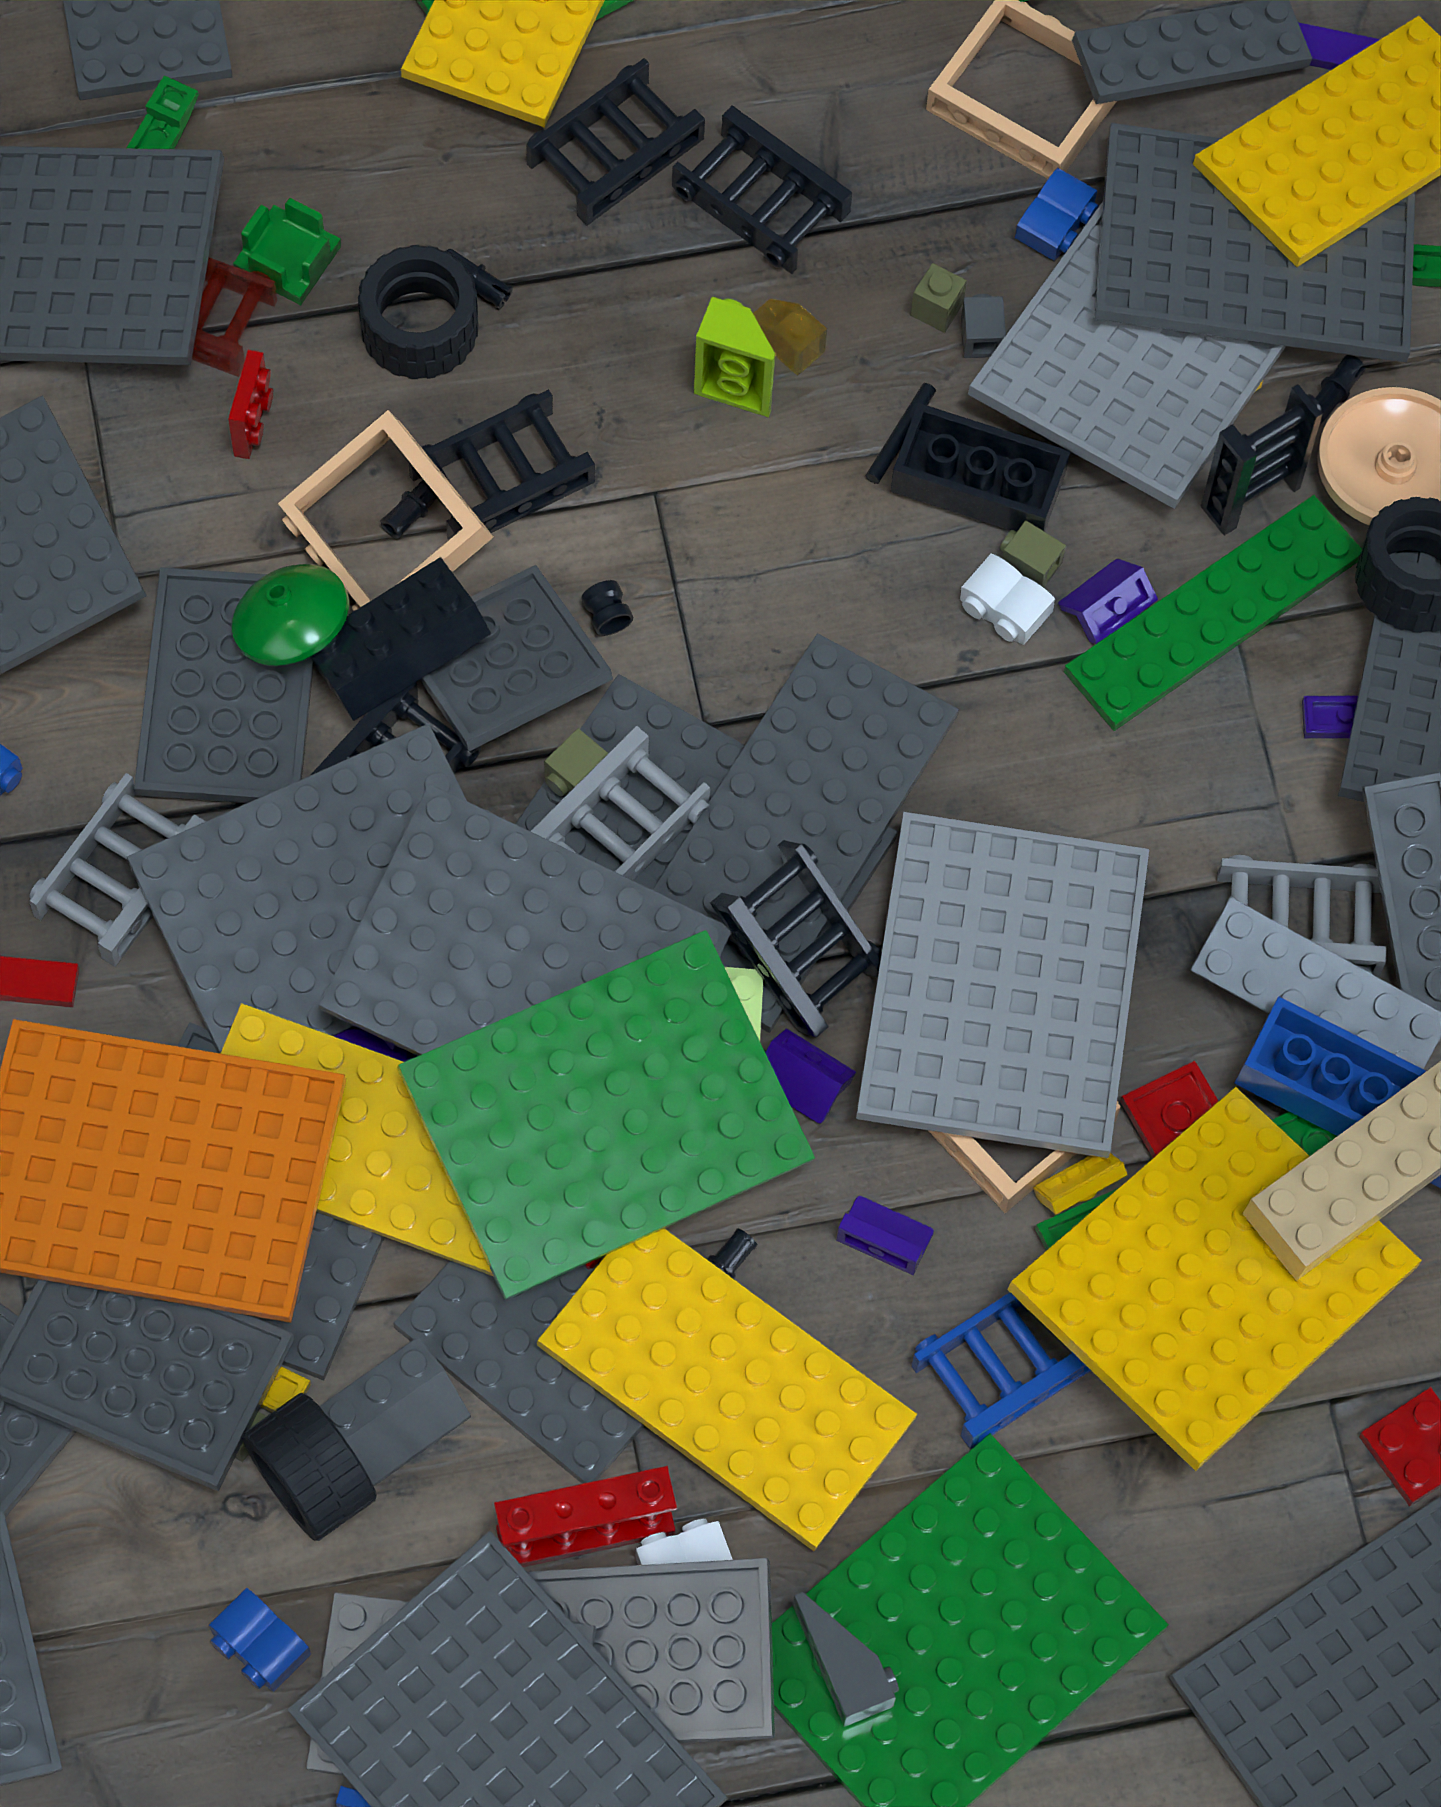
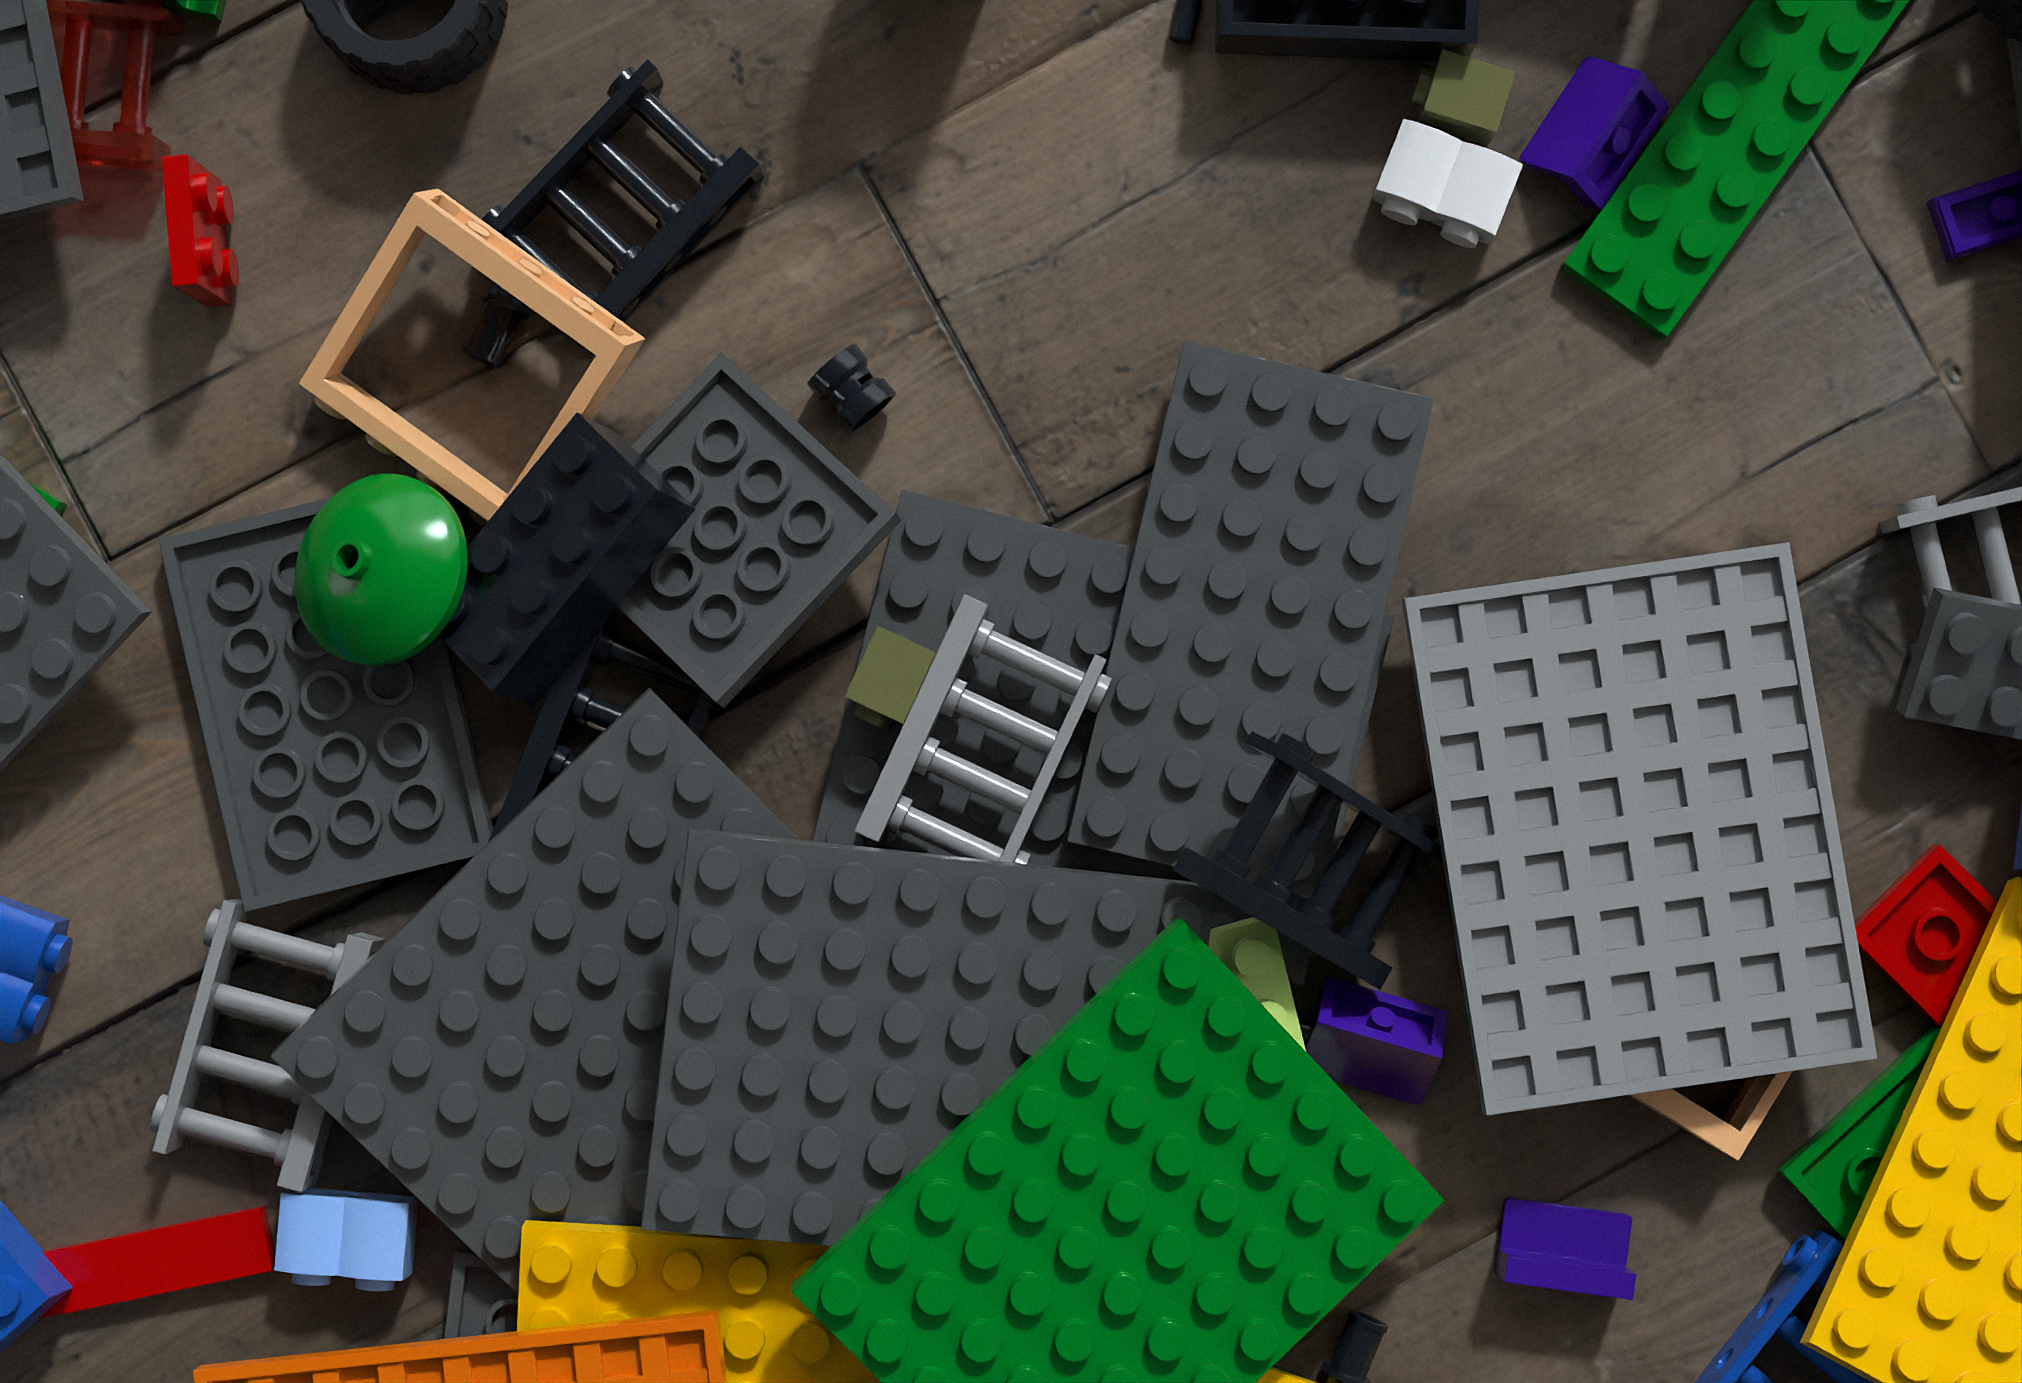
camera: 10 degrees left, 20 degrees up
(126, 993) = (346, 1236): none -> light blue brick
(1079, 1182) = (1821, 1095): yellow plate -> none

